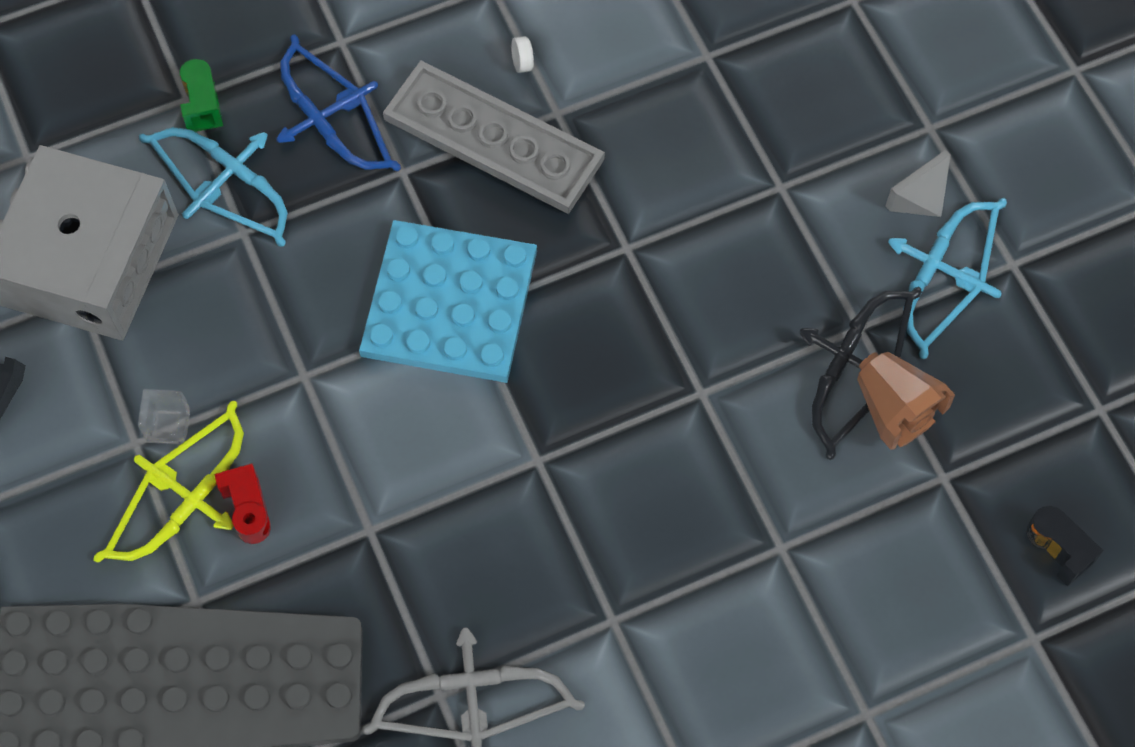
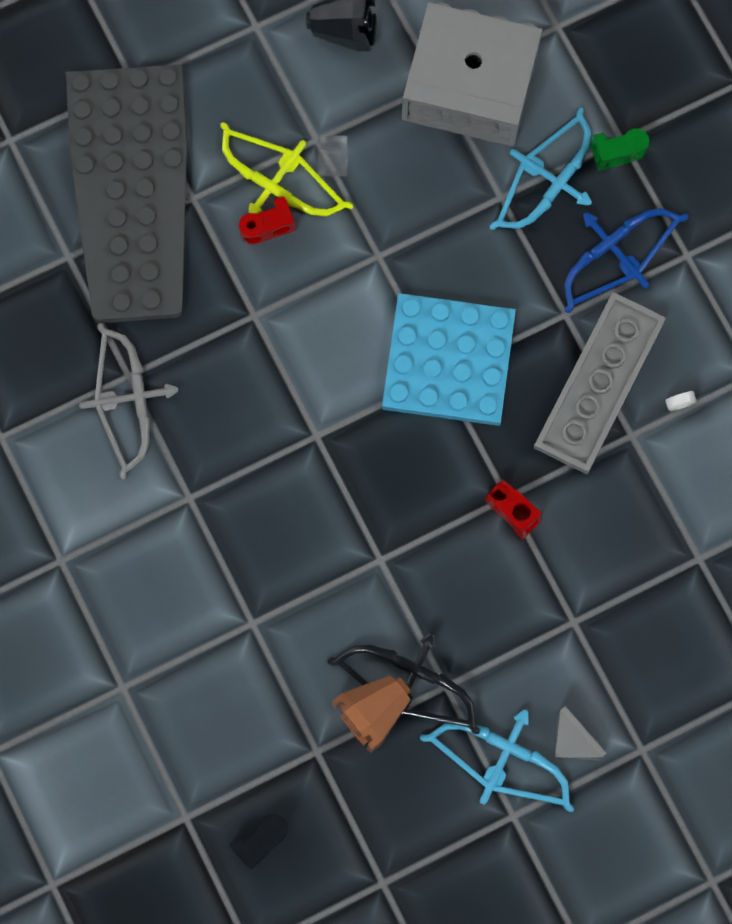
camera: 85 degrees right, 10 degrees up
(645, 235) = (514, 508): none -> red leg

